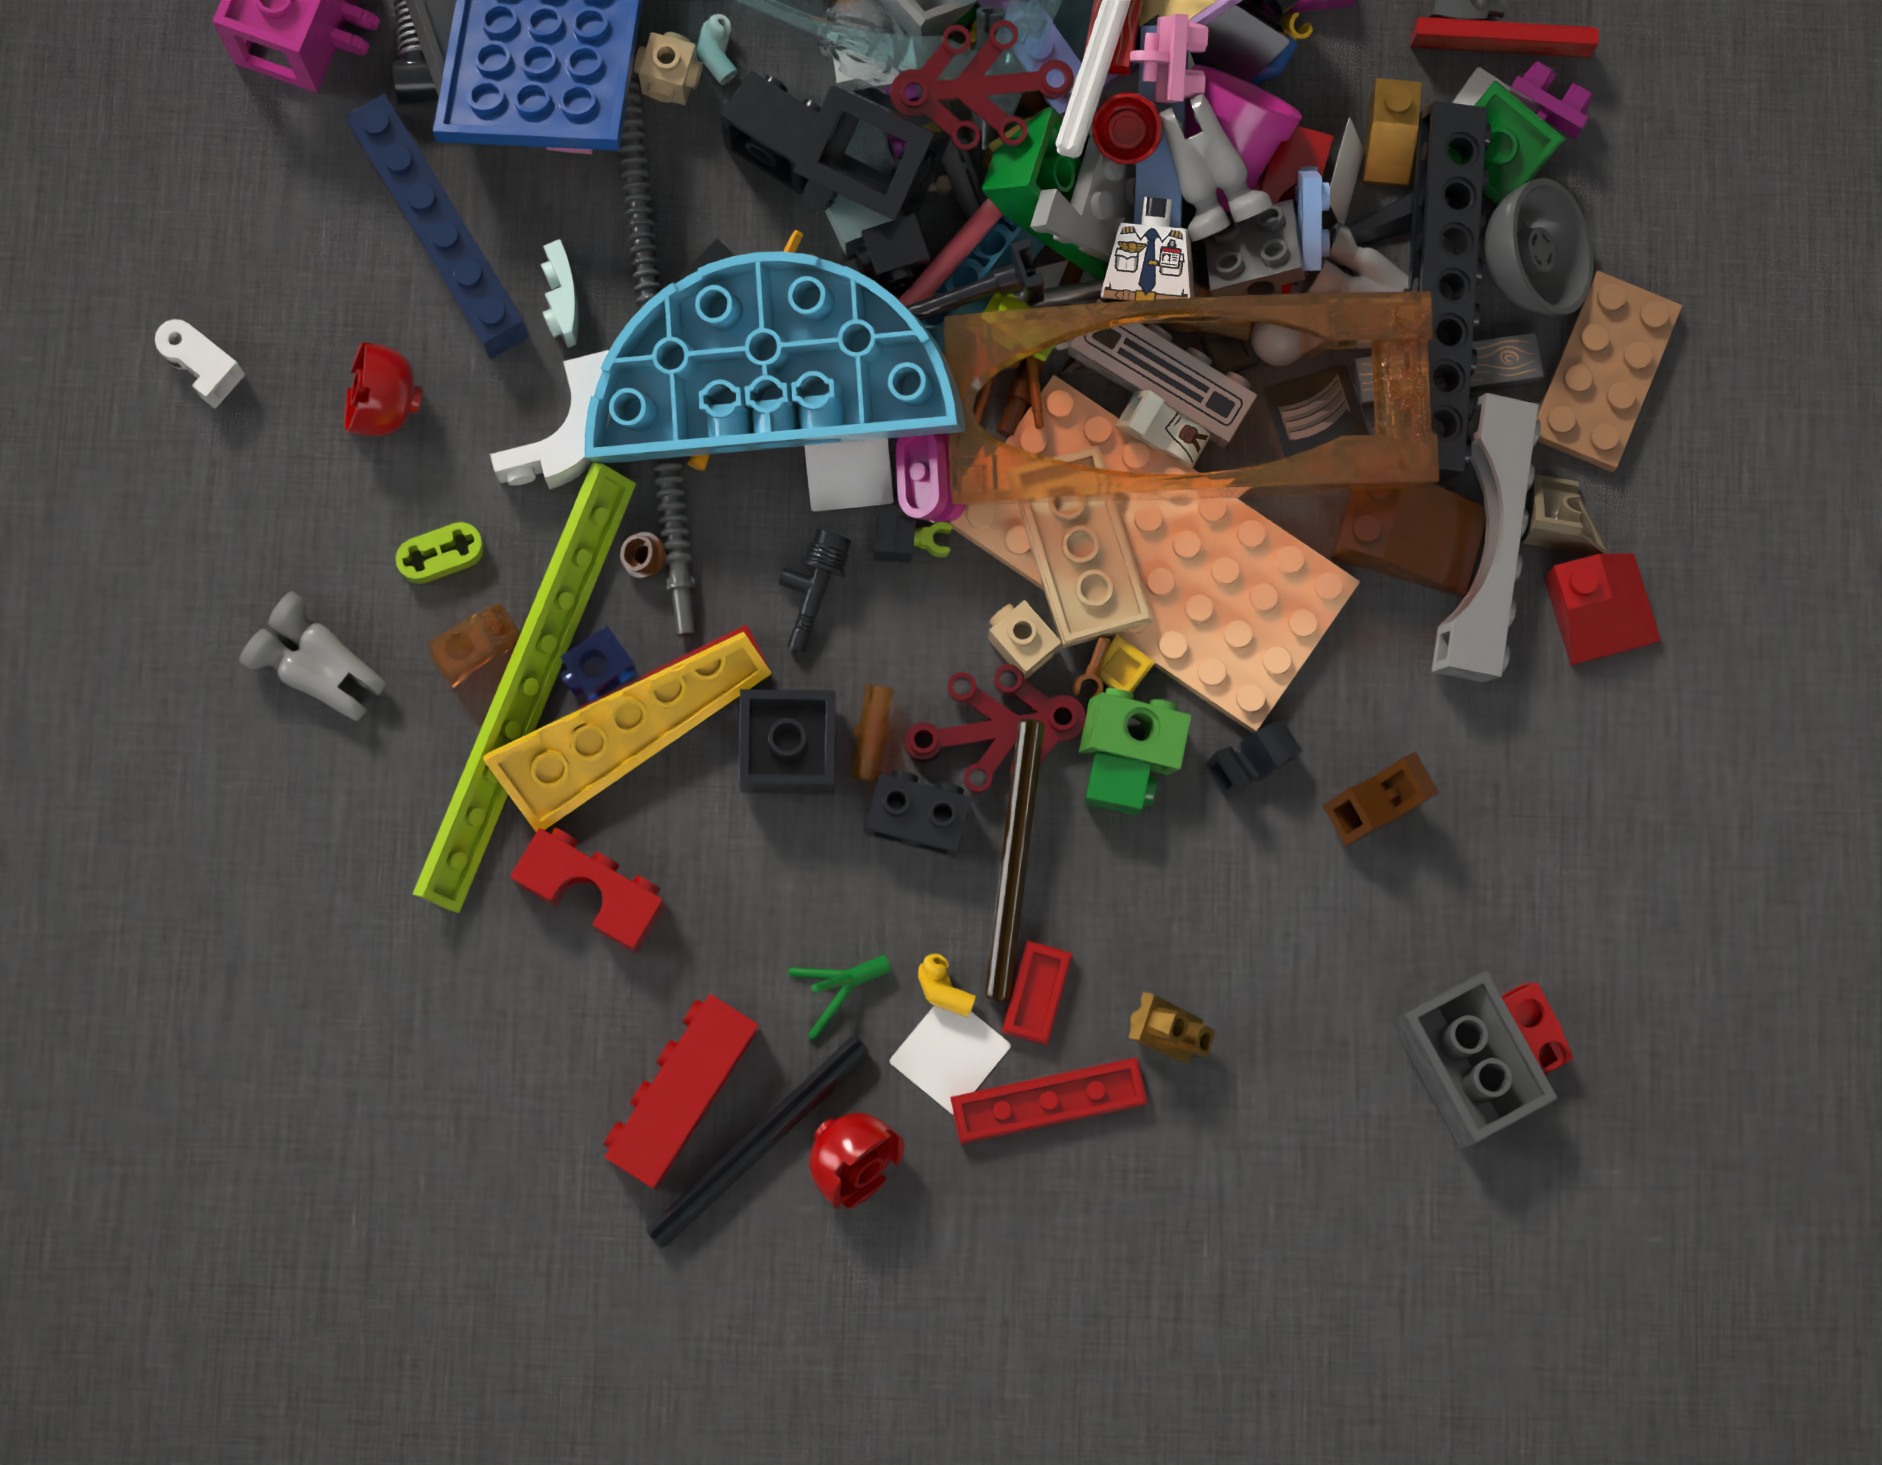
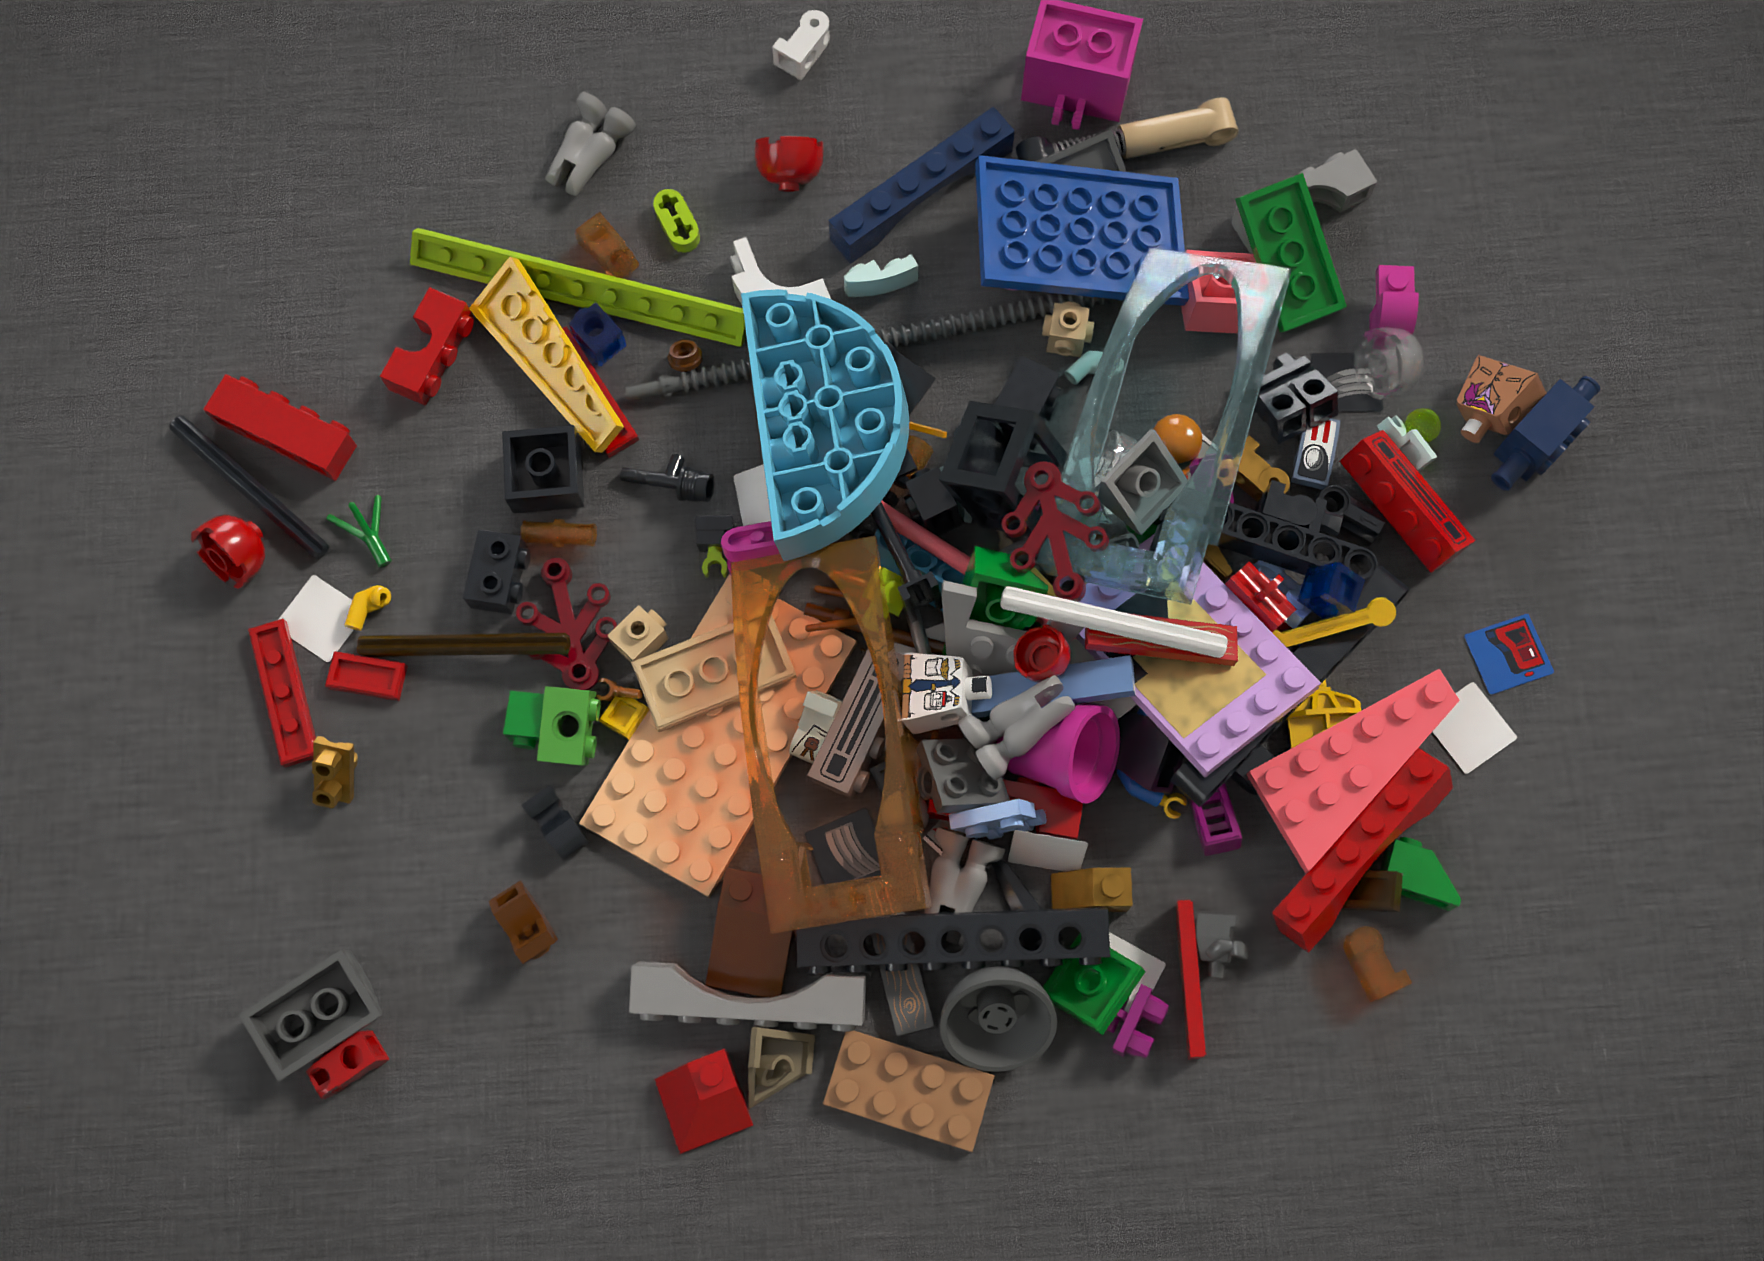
camera: 90 degrees right, 5 degrees down
(1166, 58) = (1083, 683): bright pink hips -> none

